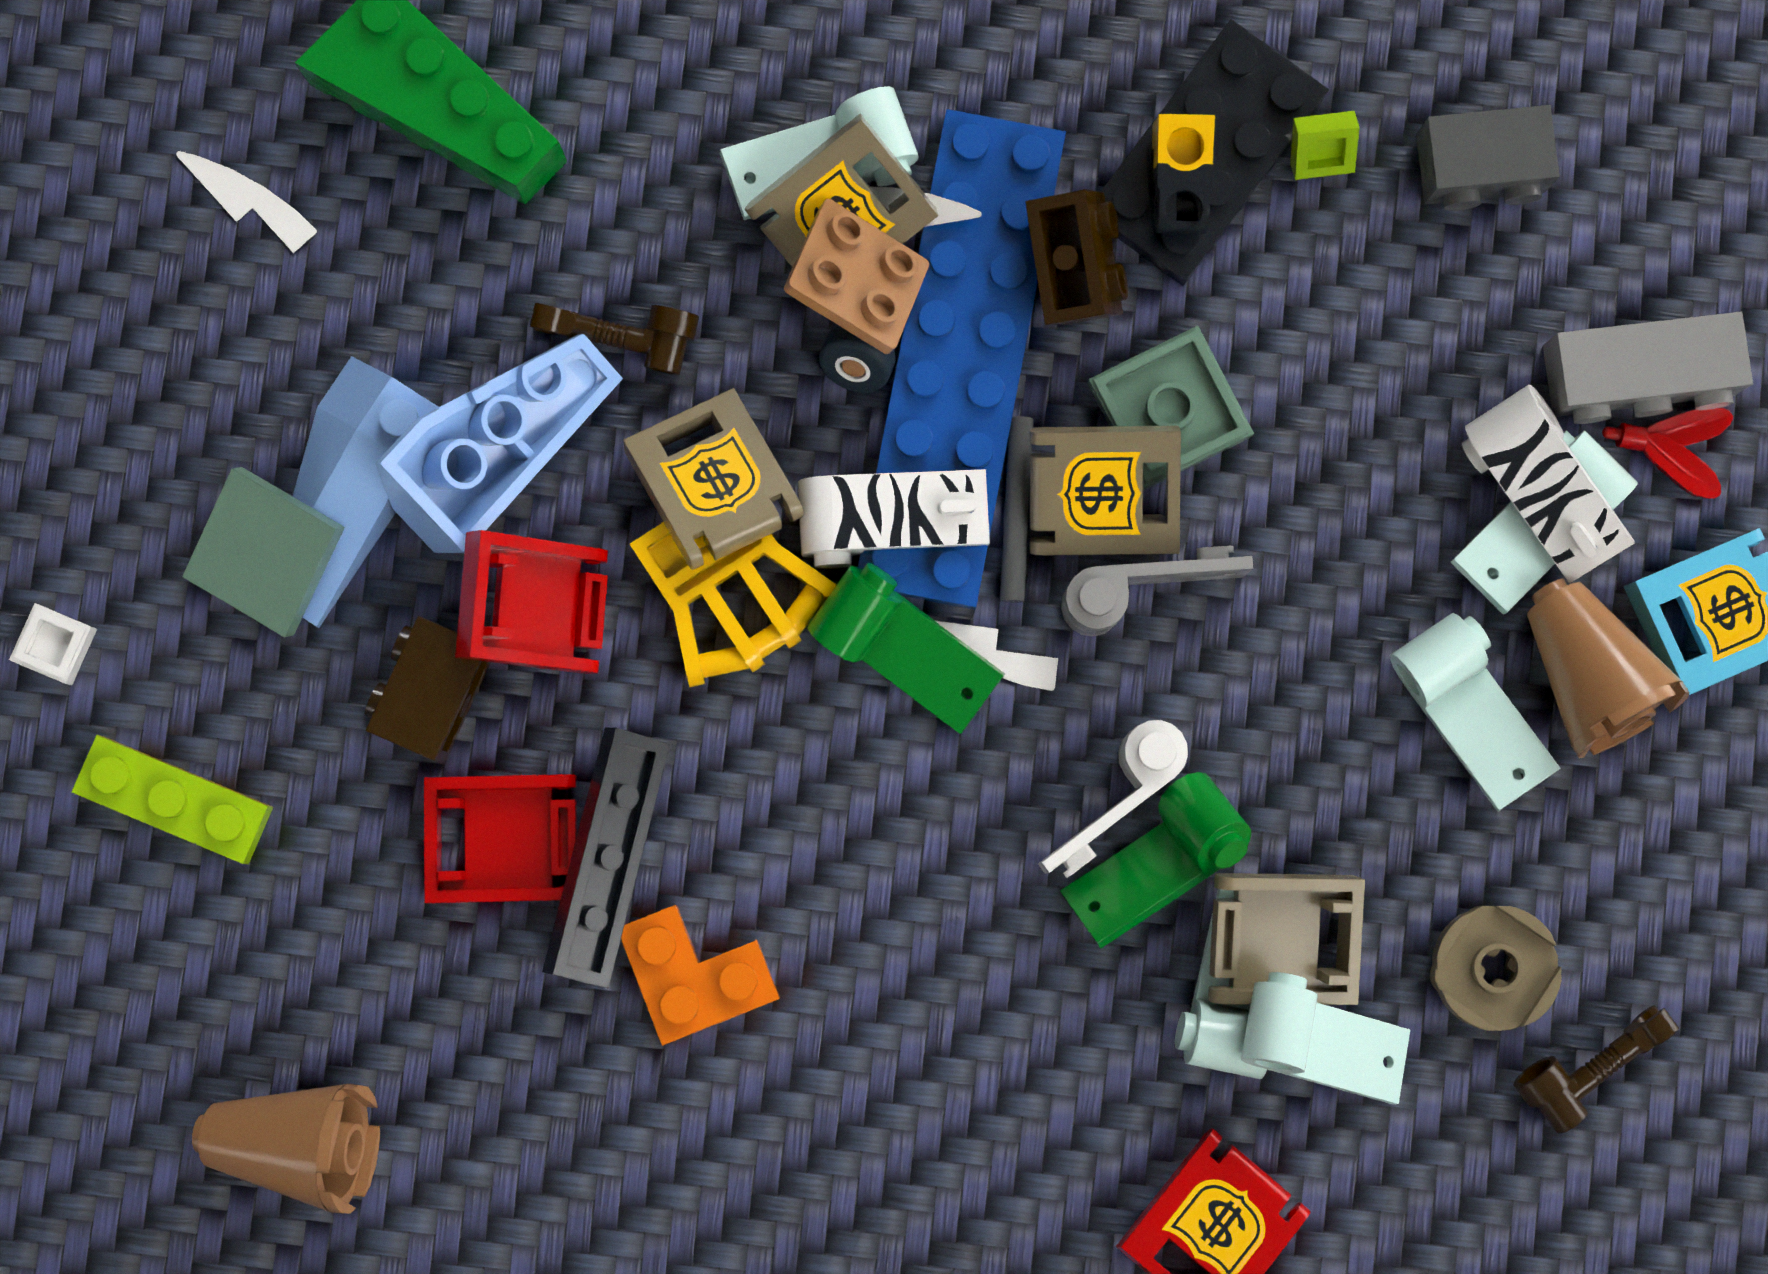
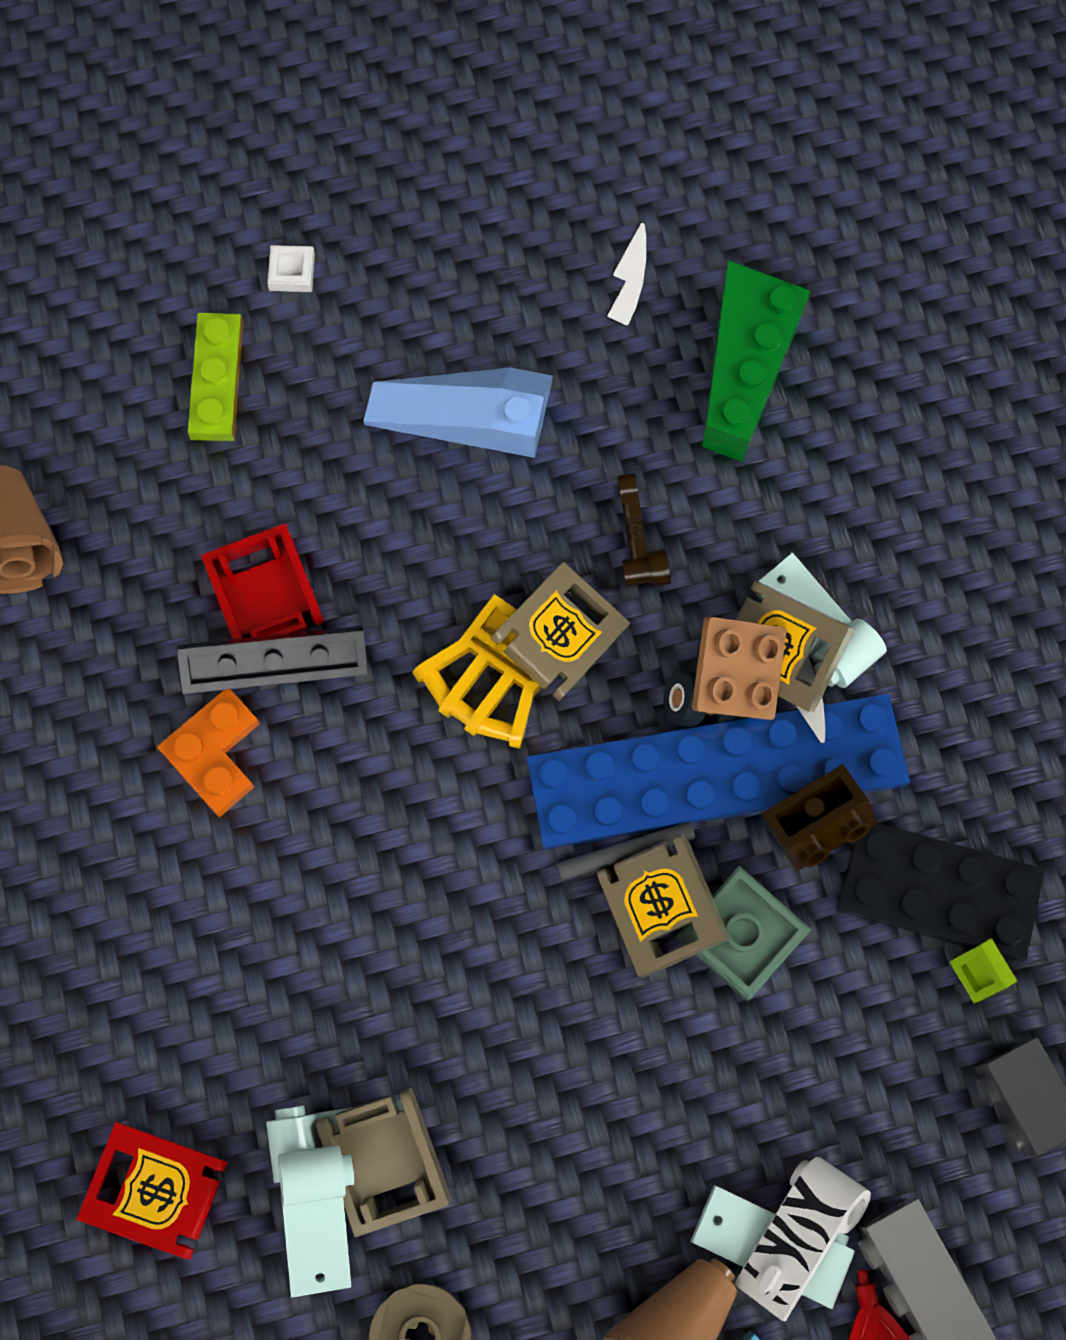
camera: 70 degrees right, 10 degrees down
(263, 551) = (398, 367): sand green tile -> none
(426, 691) = (345, 504): dark brown brick -> none
(483, 448) = (518, 471): light blue wedge -> none
(538, 603) = (431, 550): red container -> none
(891, 513) = (586, 761): white door -> none
(904, 645) = (503, 786): green door -> none
(1018, 667) = (515, 862): white sticker -> none
(1101, 593) = (582, 930): light grey door -> none
(1150, 759) = (480, 1011): white door -> none
(1182, 172) = (914, 870): leg -> none
(1194, 841) = (407, 1051): green door -> none
(1470, 710) = (608, 1246): light aqua door -> none

